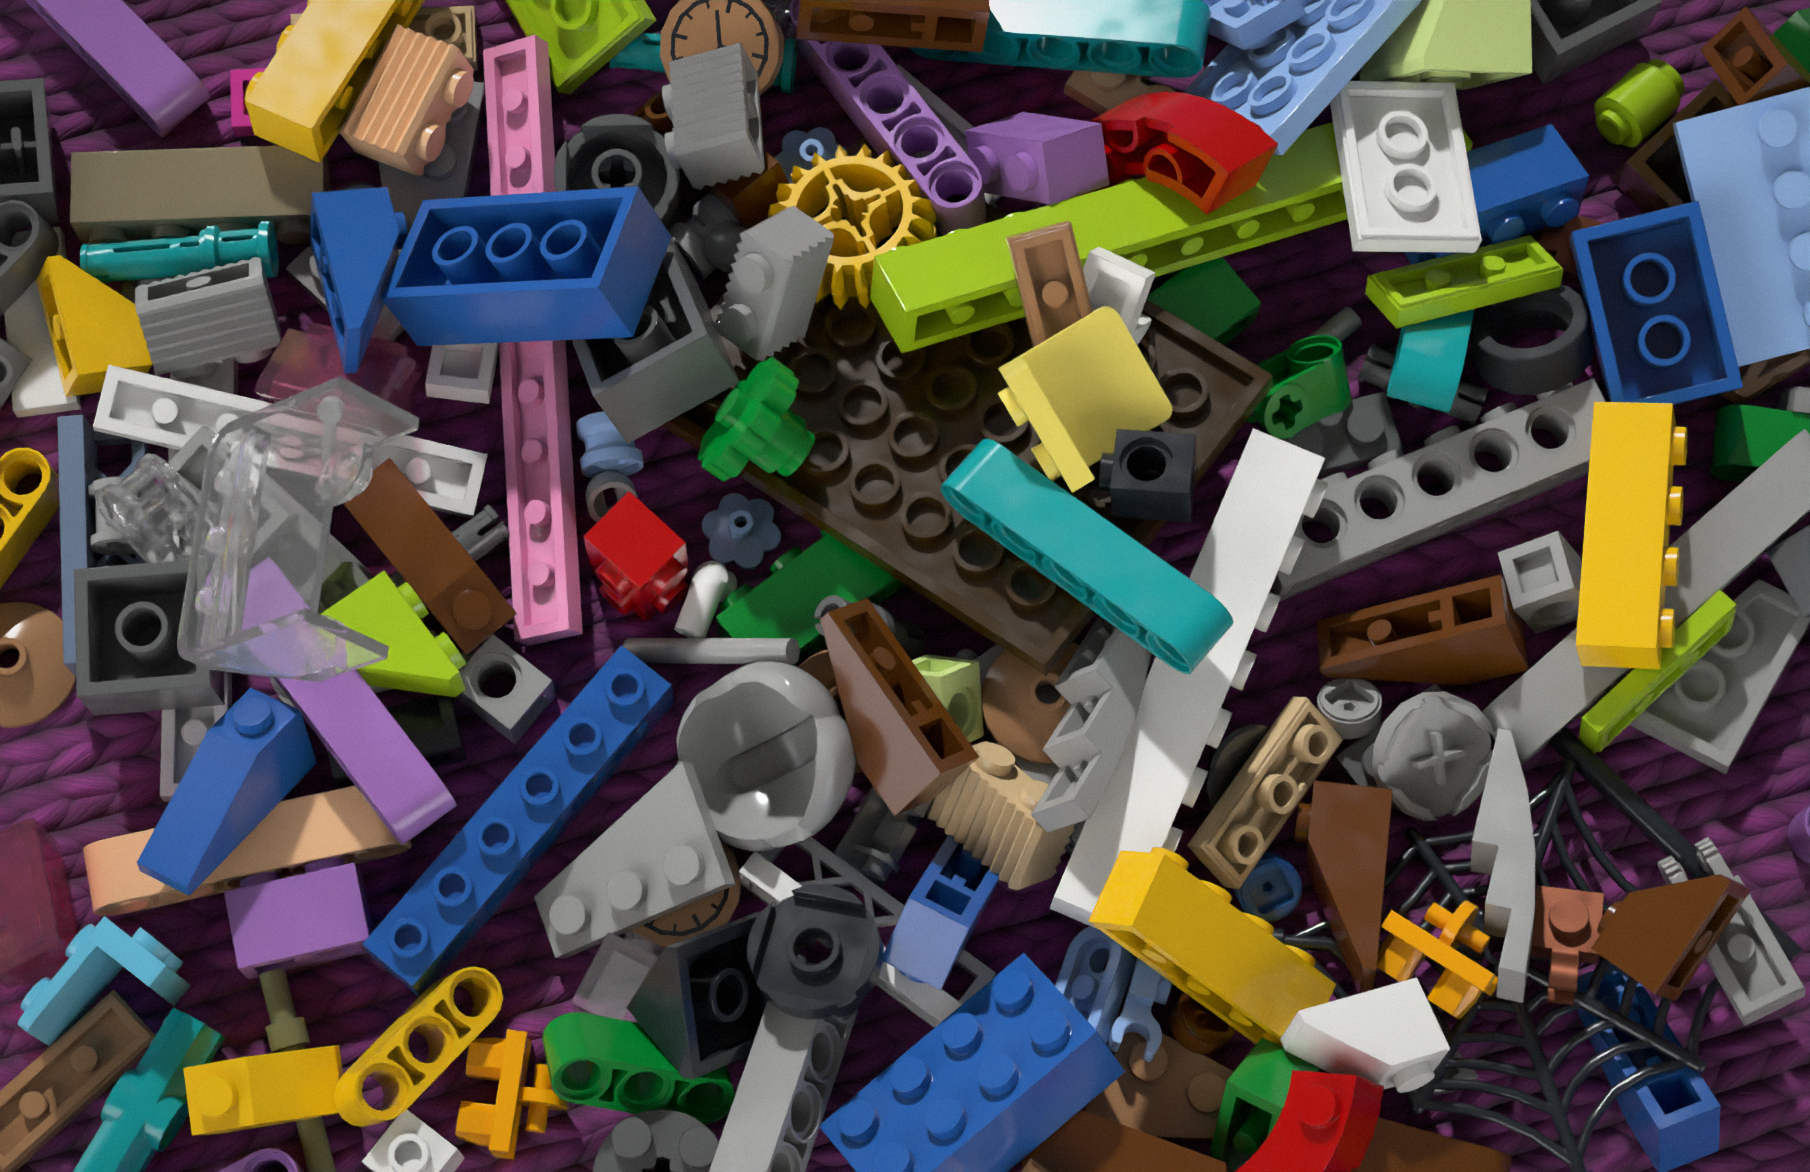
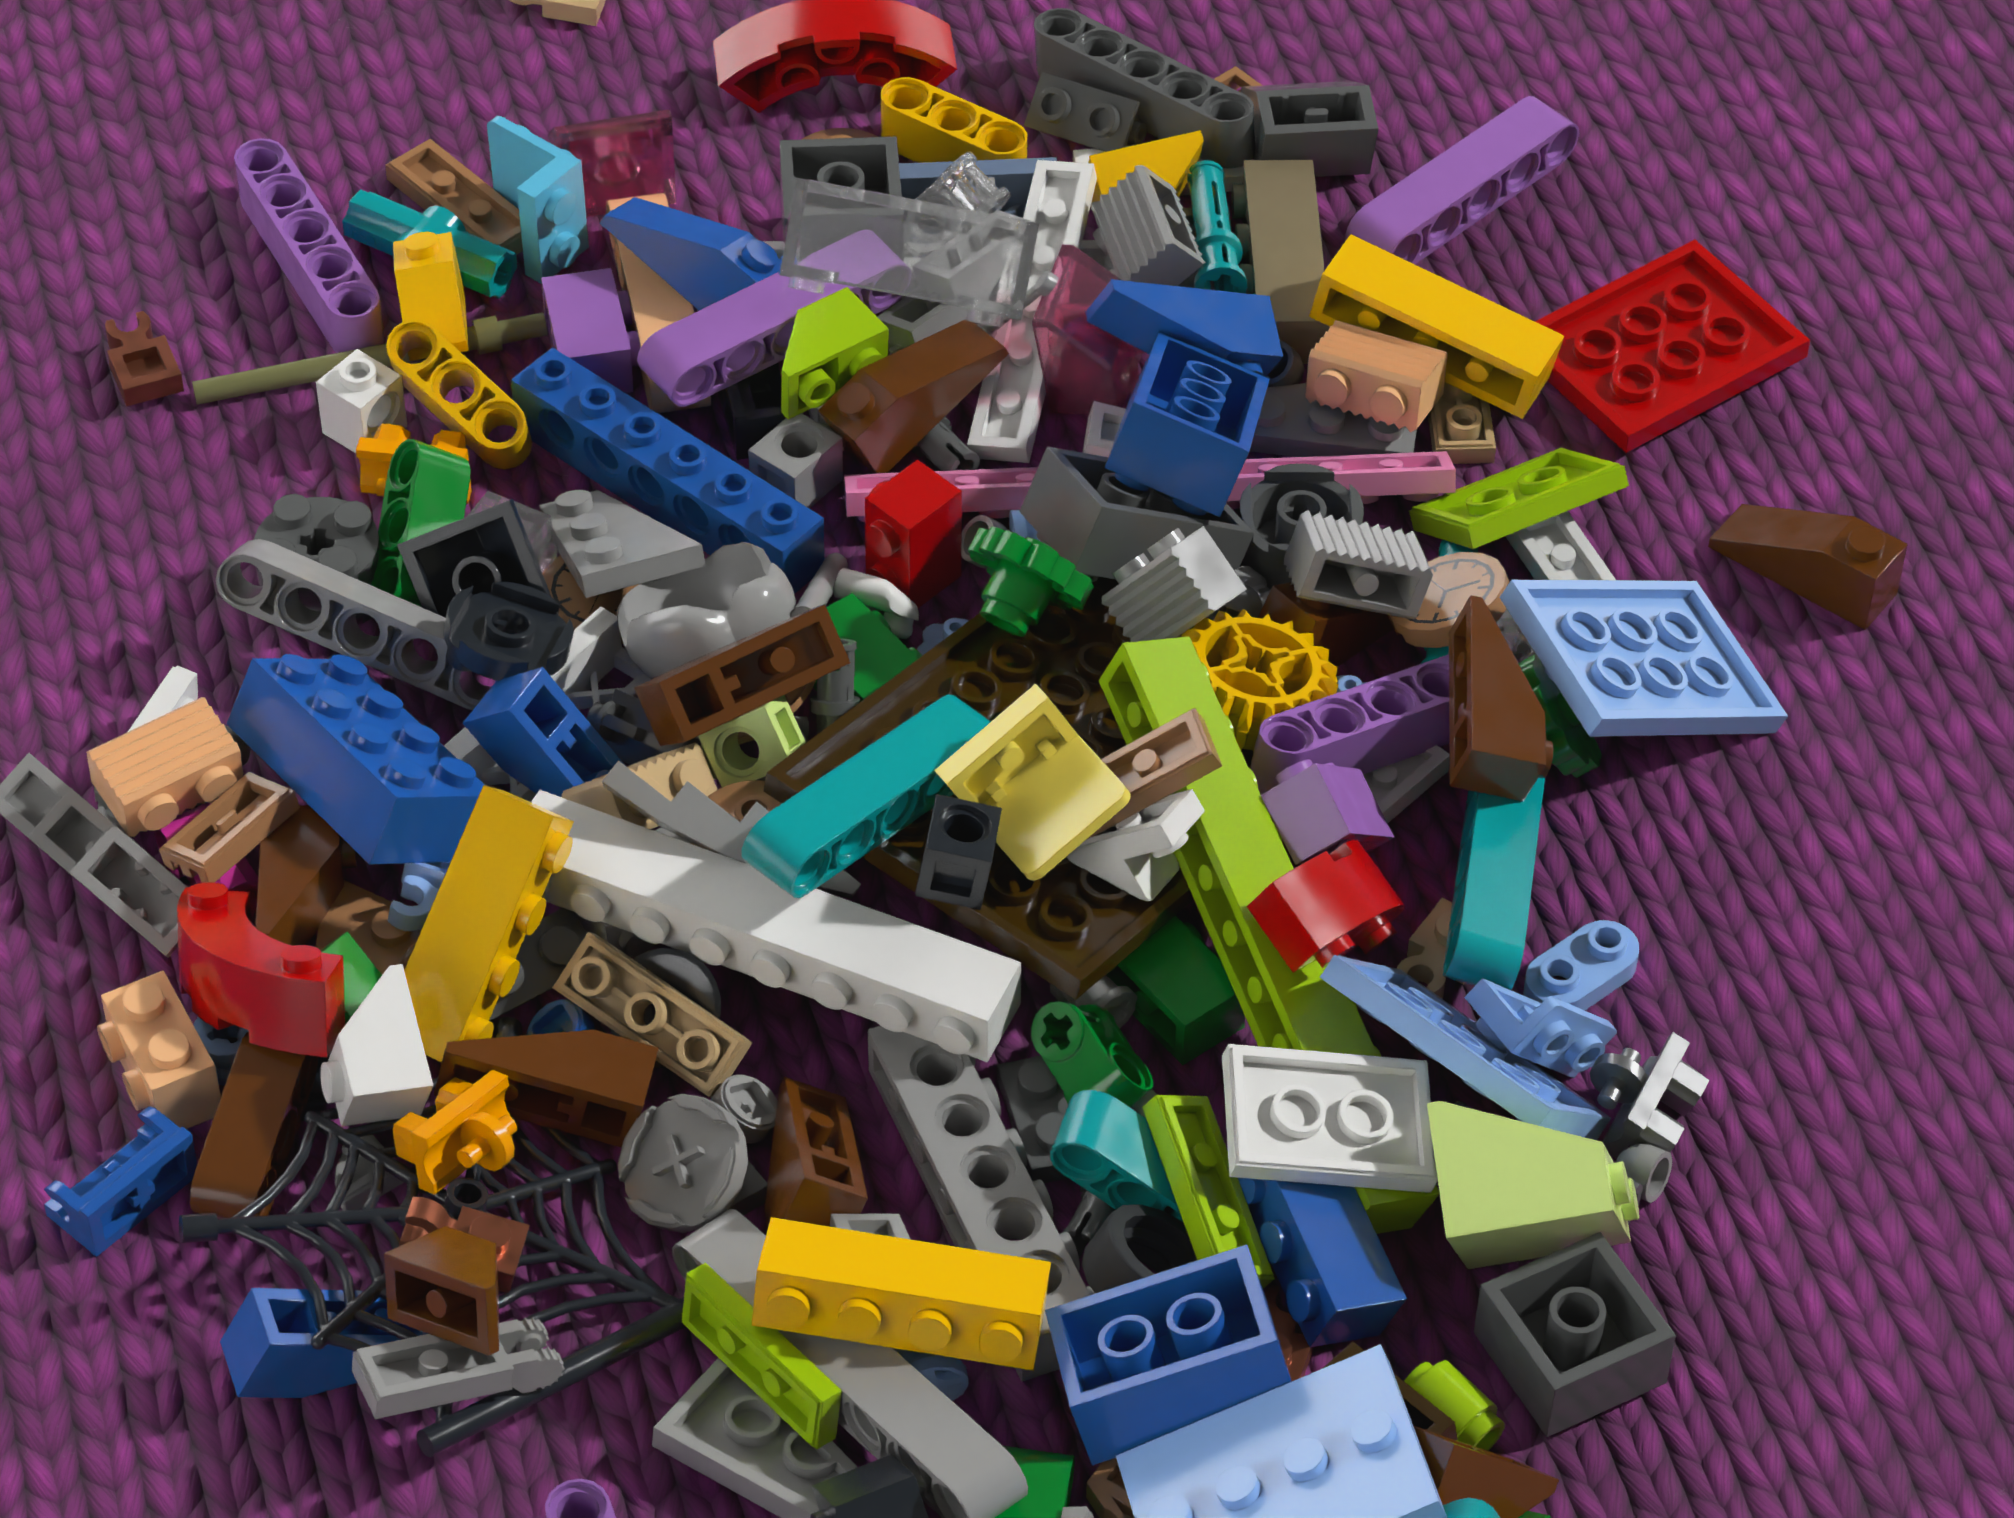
camera: 95 degrees right, 25 degrees down
(1506, 851) = (569, 1200): light grey slope -> none

